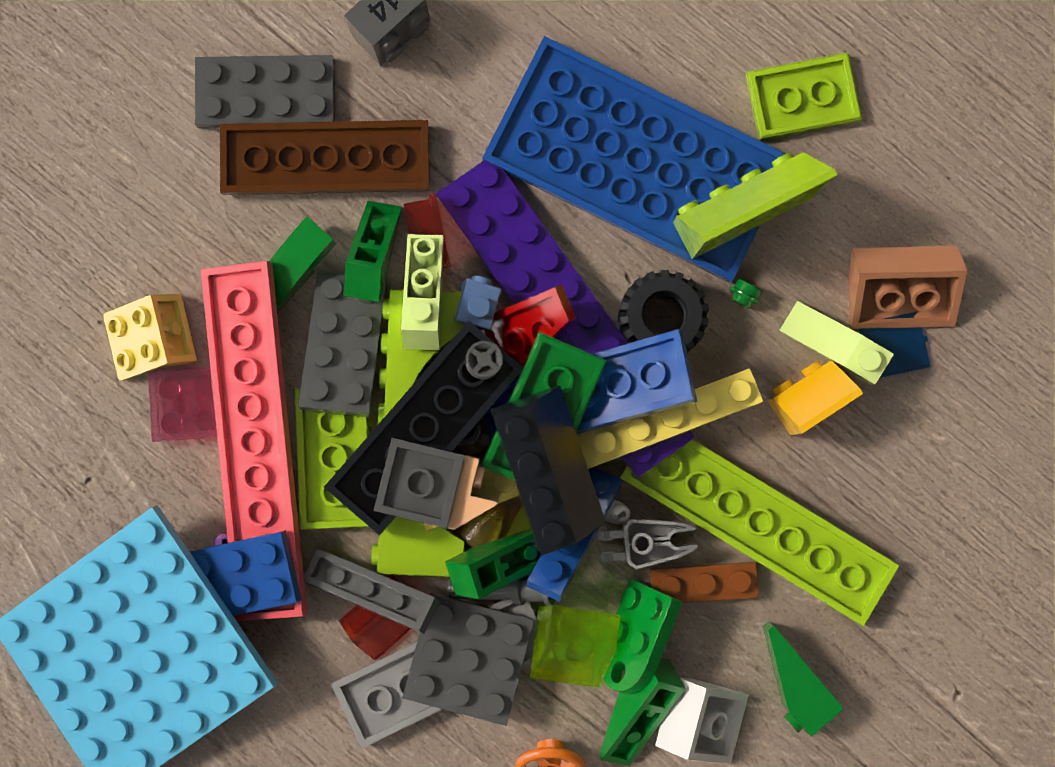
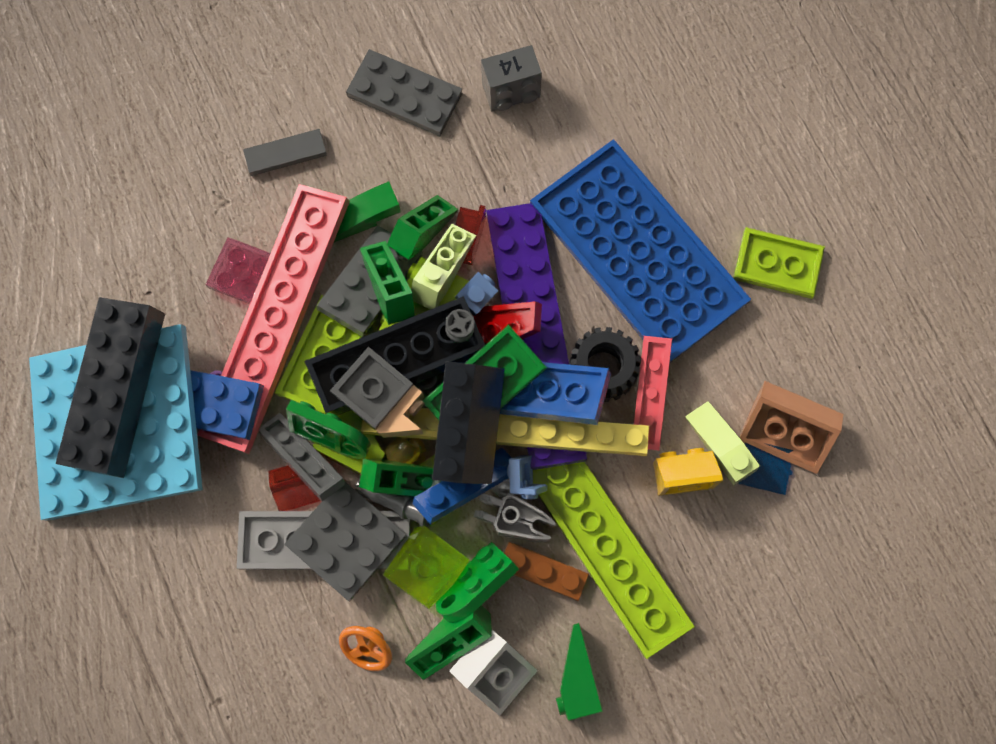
camera: 25 degrees right, 10 degrees down
(112, 623) = (111, 387): none -> black brick
(149, 335) = (242, 213): light yellow bracket -> none
(160, 234) = (284, 152): none -> dark grey tile
(324, 157) = (422, 152): reddish brown plate -> none
(369, 341) = (388, 283): none -> green slope
(388, 552) = (326, 430): none -> green plate
(633, 496) = (522, 478): none -> medium blue bracket
(730, 317) = (653, 387): none -> coral plate
(745, 293) = (675, 379): green plate -> none
(751, 202) = (704, 313): lime slope -> none

